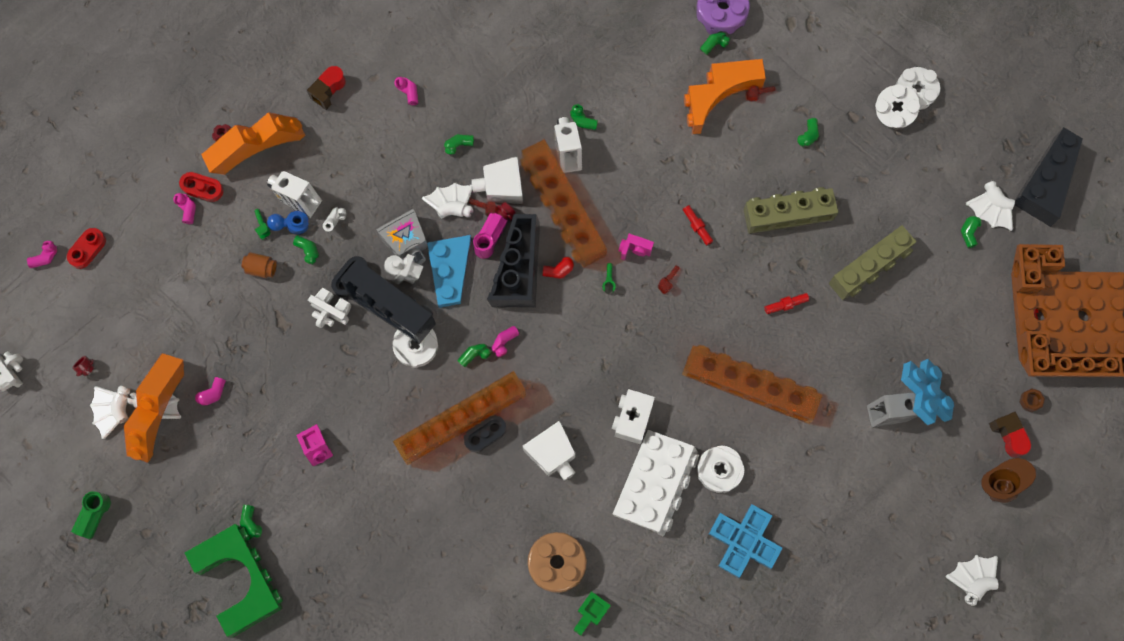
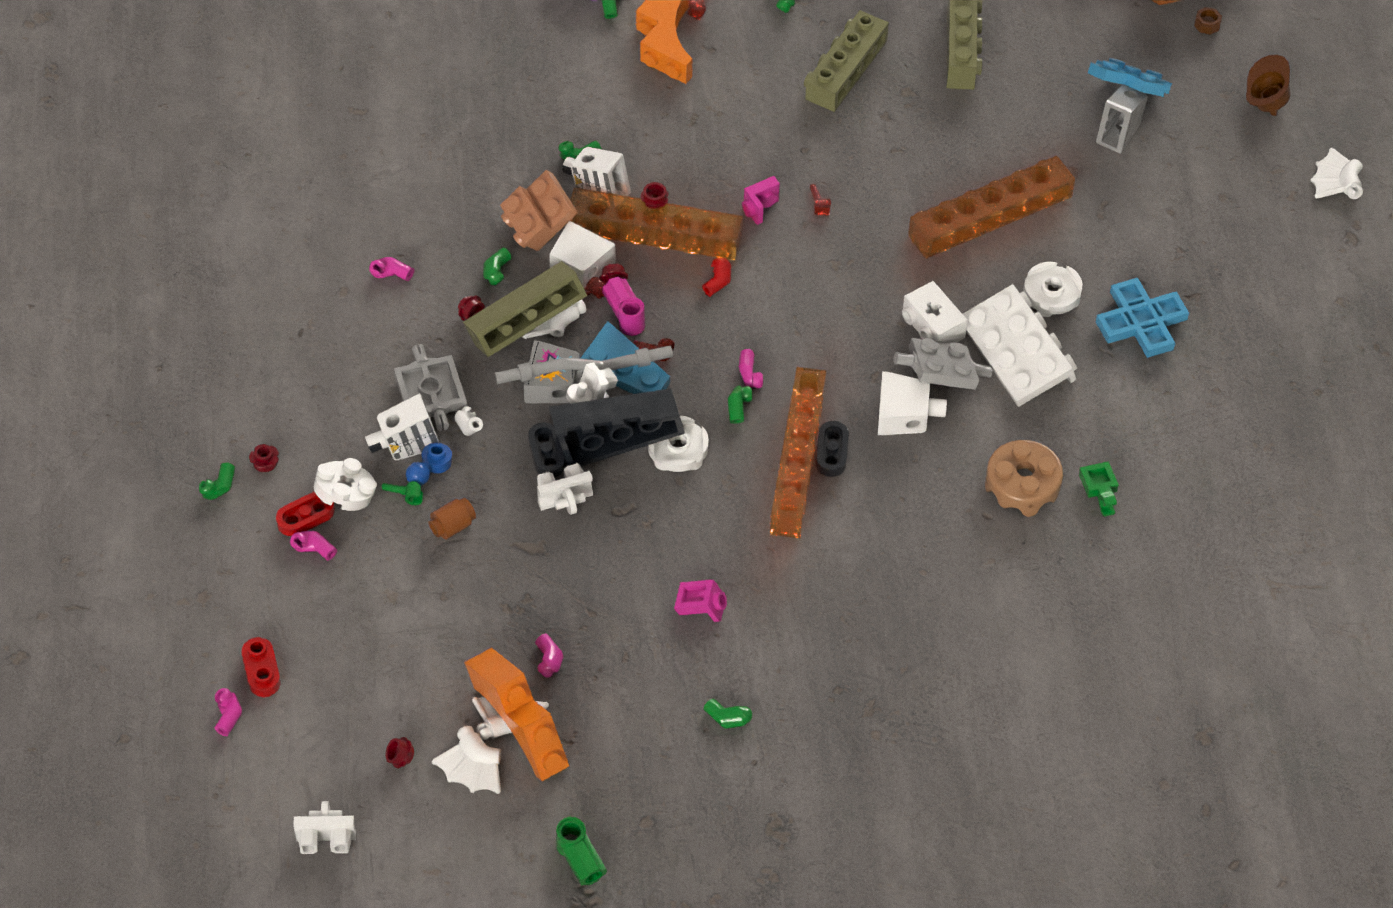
camera: 50 degrees left, 20 degrees down
(186, 128) = (213, 489): none -> green arm
(222, 196) = (344, 484): none -> white plate
(245, 141) = (306, 430): orange arch -> none
(261, 598) = (747, 739): green arch -> none
(309, 247) = (473, 465): green arm -> none
(326, 85) = (311, 323): leg -> none
(340, 179) = (435, 382): none -> light grey plate
(383, 225) = (525, 371): none -> light grey bar
(415, 155) = (470, 306): none -> dark red plate
(431, 185) = (525, 308): none -> olive brick
(475, 274) = (662, 343): none -> clear red hand
(511, 133) = (538, 211): none -> nougat plate
(518, 268) = (686, 299): black wedge -> none
(570, 184) = (654, 195): none -> dark red plate
(598, 450) = (943, 363): none -> light grey plate
(609, 279) = (774, 246): green hand -> none
(697, 225) = (787, 140): red bar -> none
(786, 303) = (936, 128): red bar -> none
(1013, 434) = (1227, 55): leg -> none

